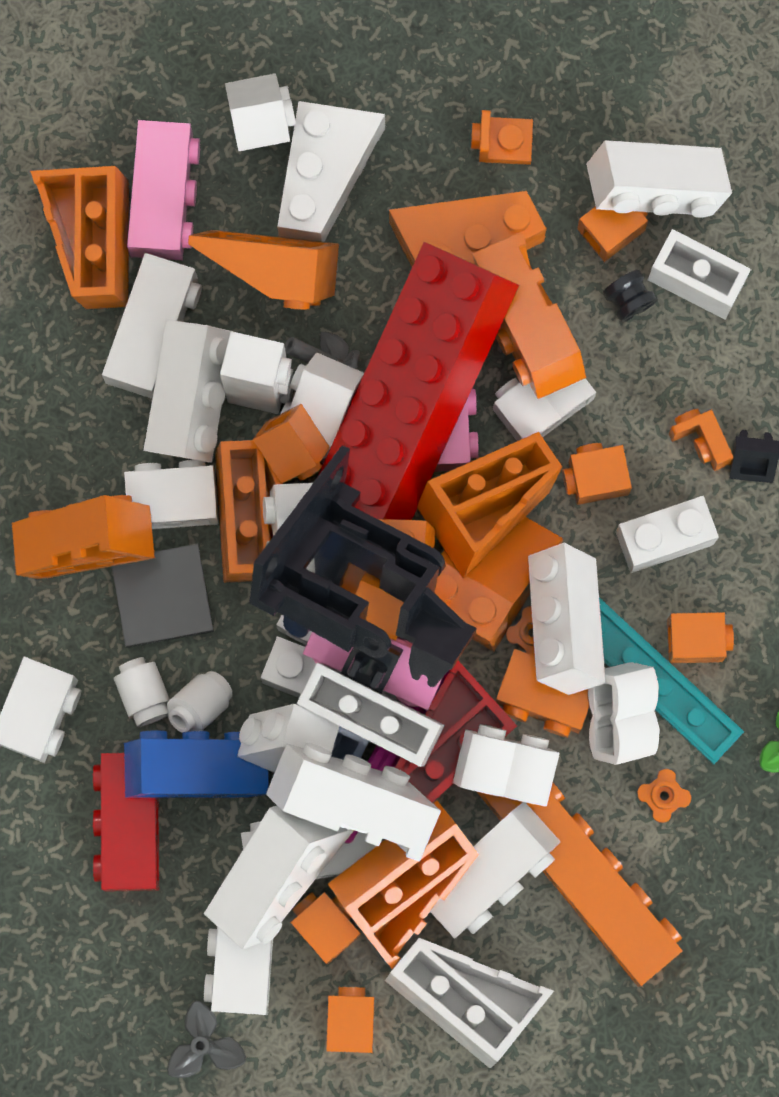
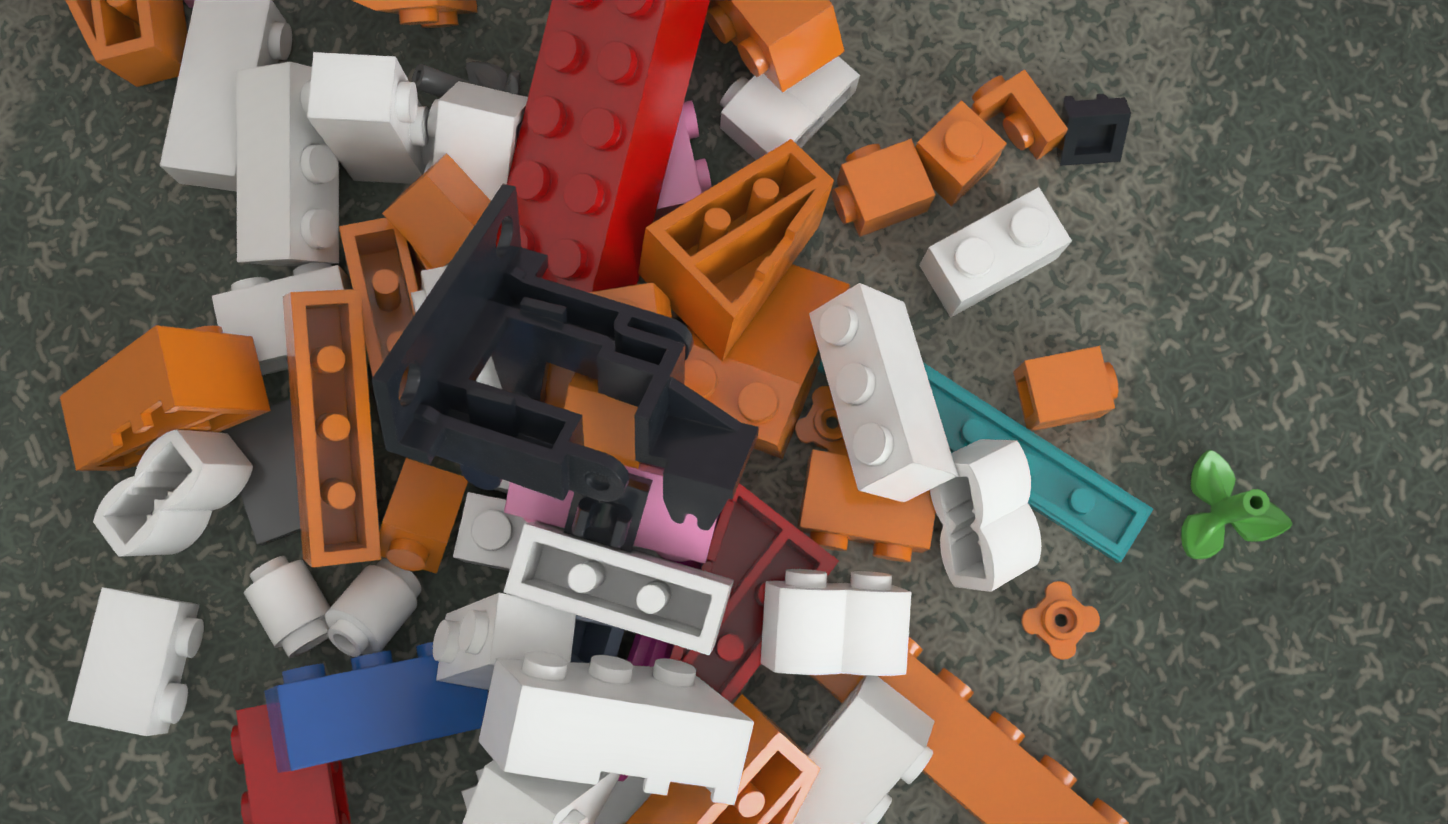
camera: 15 degrees left, 0 degrees up
(84, 597) = (172, 493): none -> white brick
(195, 577) = (331, 427): none -> orange brick
(241, 647) = (420, 516): none -> orange brick
(654, 459) = (958, 152): none -> orange brick

